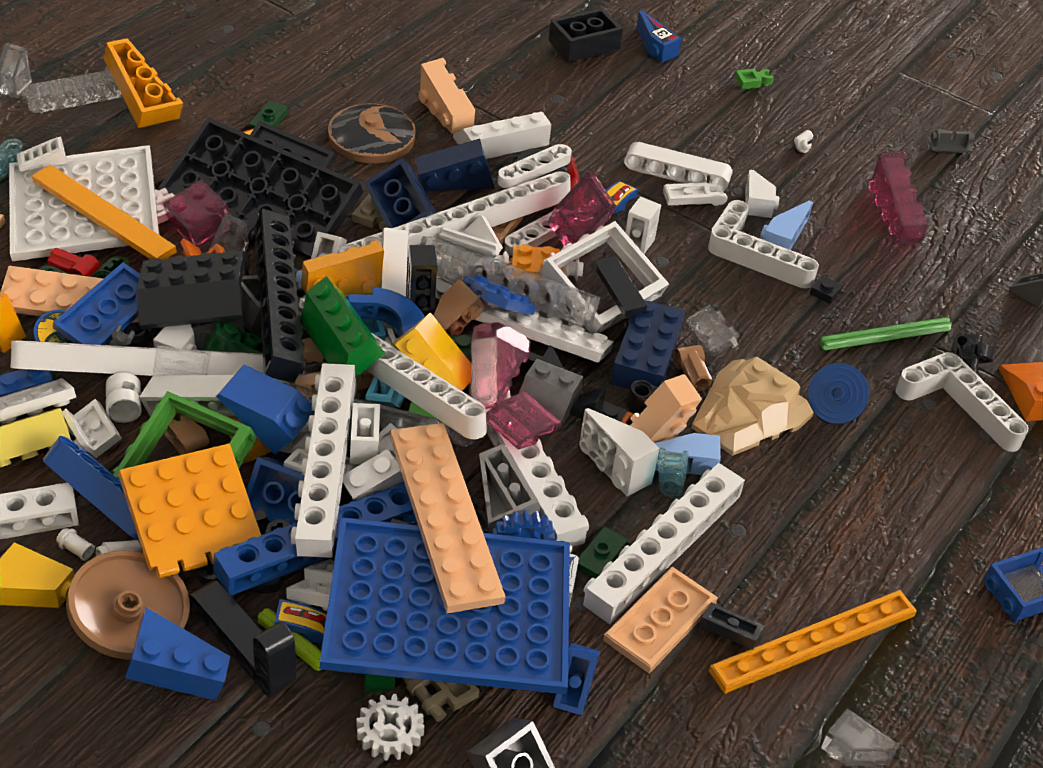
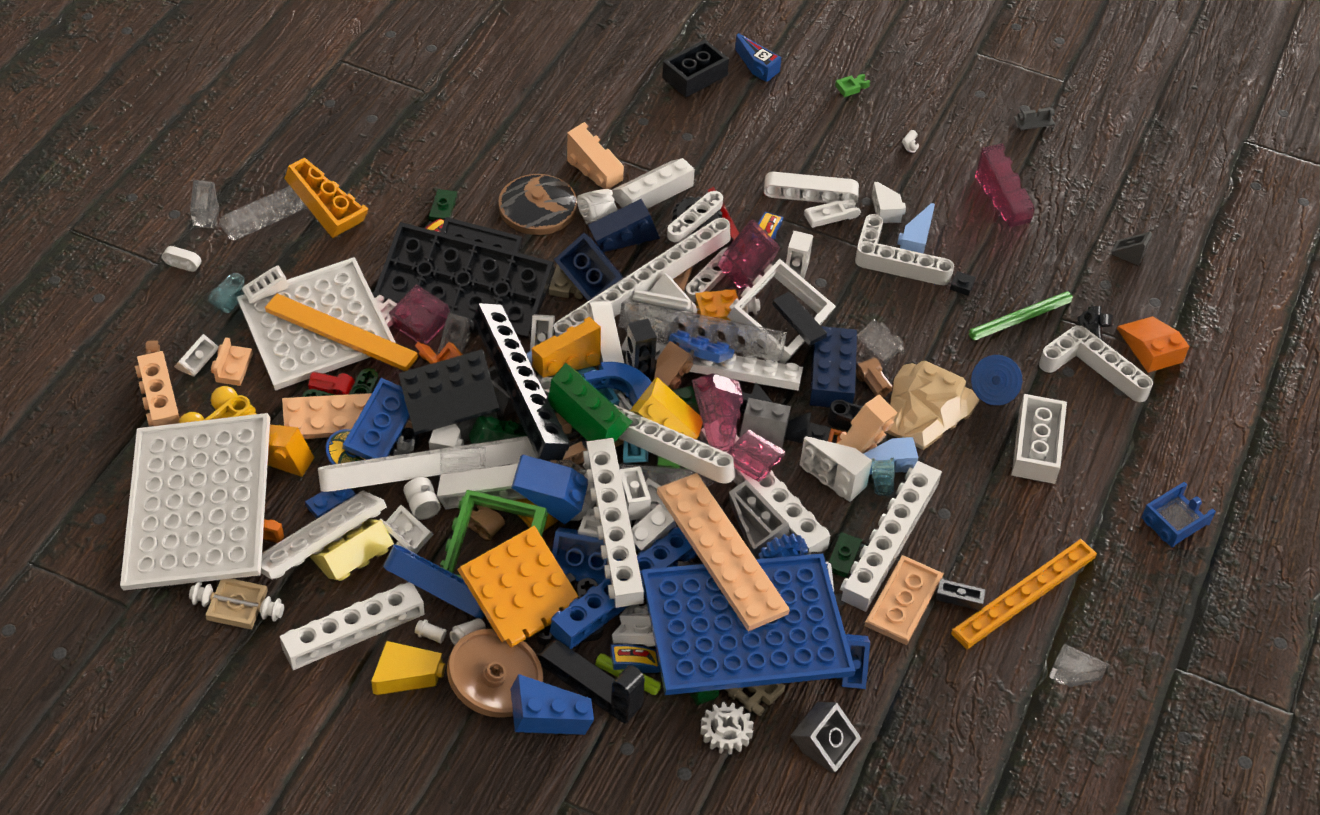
camera: 10 degrees left, 5 degrees up
(431, 138) = (596, 205): none -> white piece
(874, 466) = (1039, 438): none -> white brick

